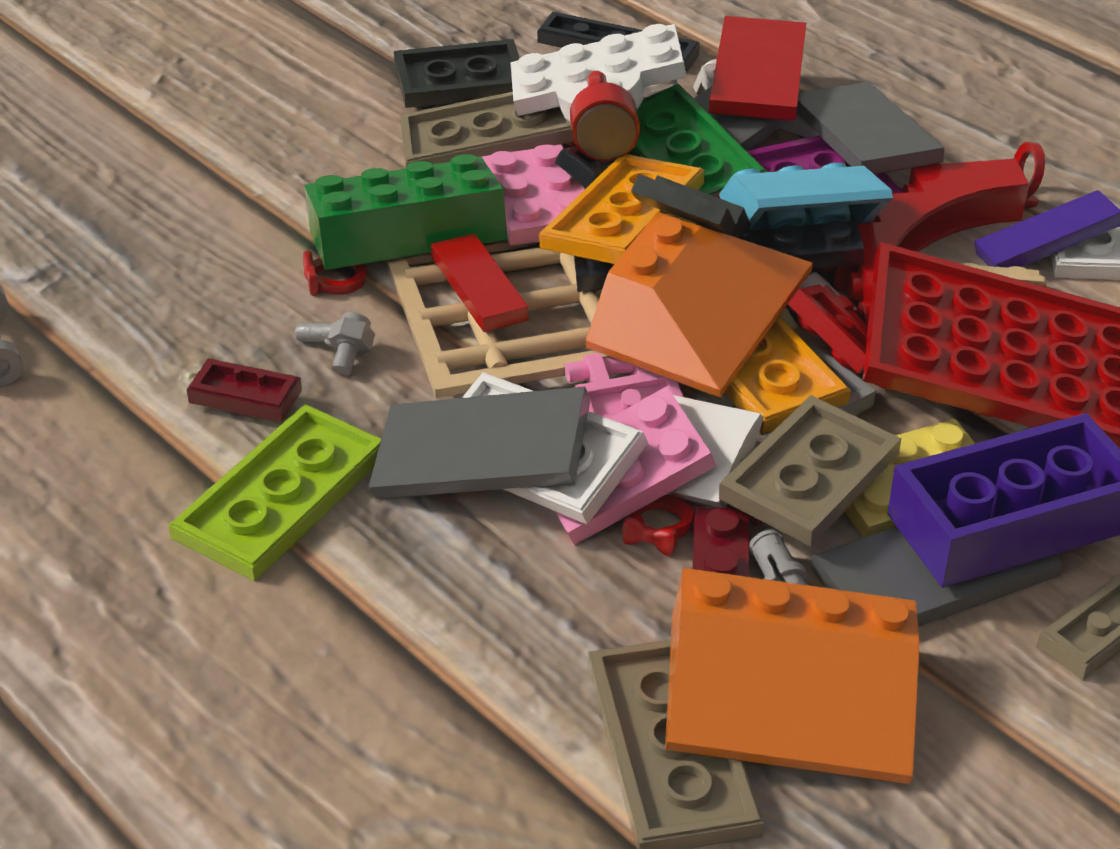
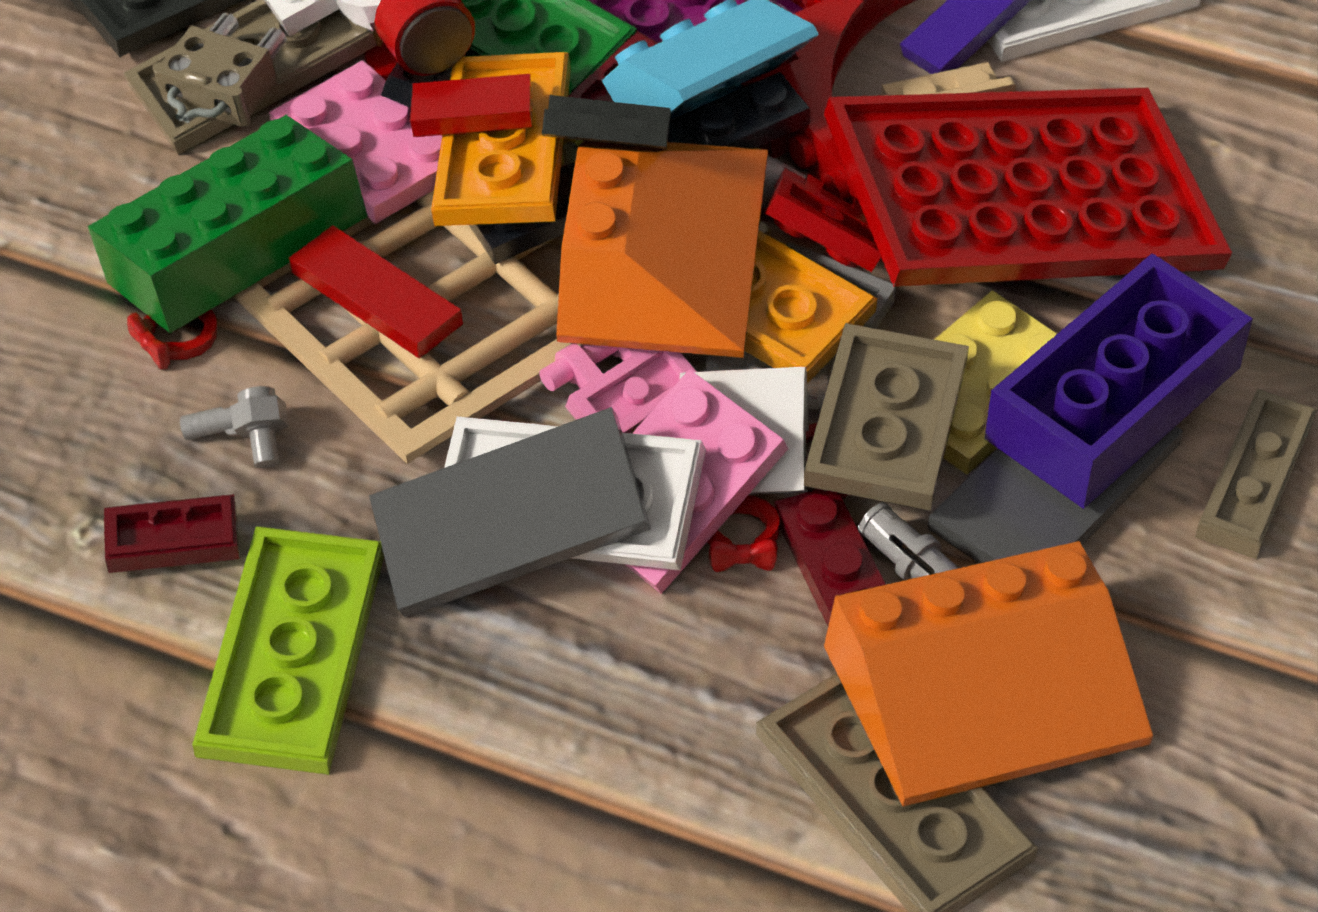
camera: 25 degrees left, 10 degrees up
(455, 122) = (218, 73): none -> dark tan piece
(602, 177) = (471, 105): none -> red tile

